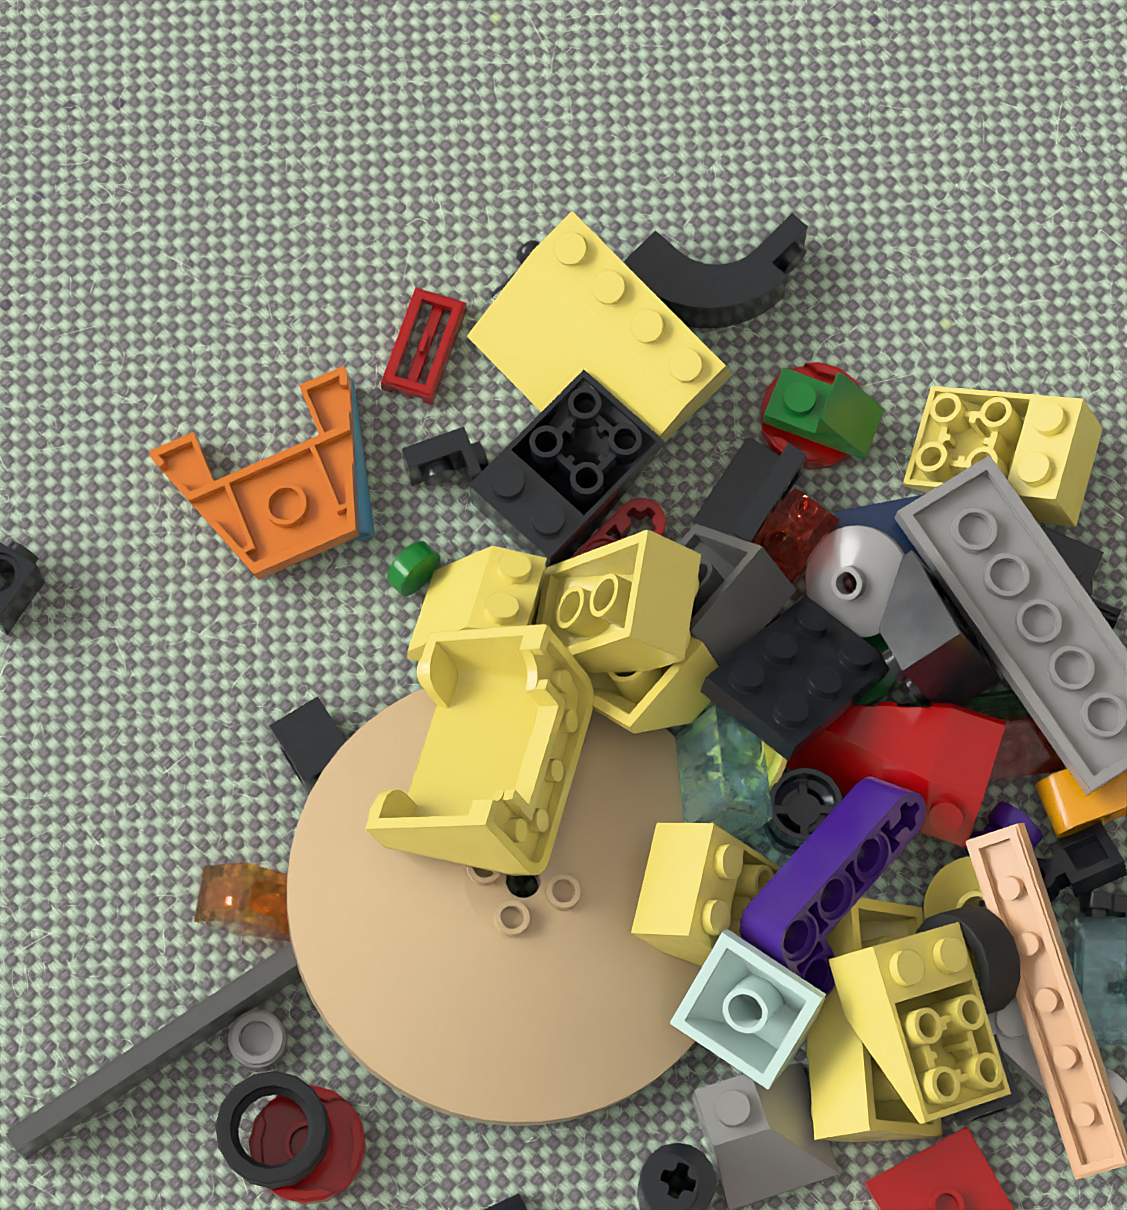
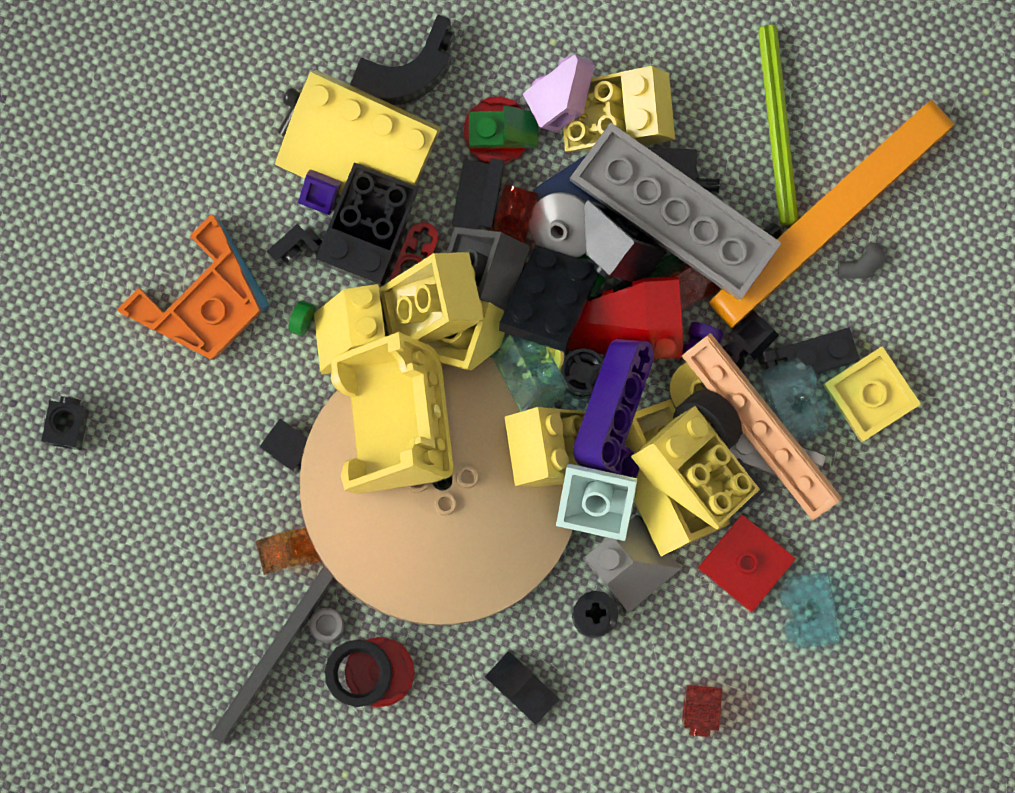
camera: 20 degrees left, 10 degrees up
(410, 385) = (253, 207): red tile -> none
(515, 398) = (319, 192): none -> dark purple tile
(931, 392) = (561, 94): none -> slope

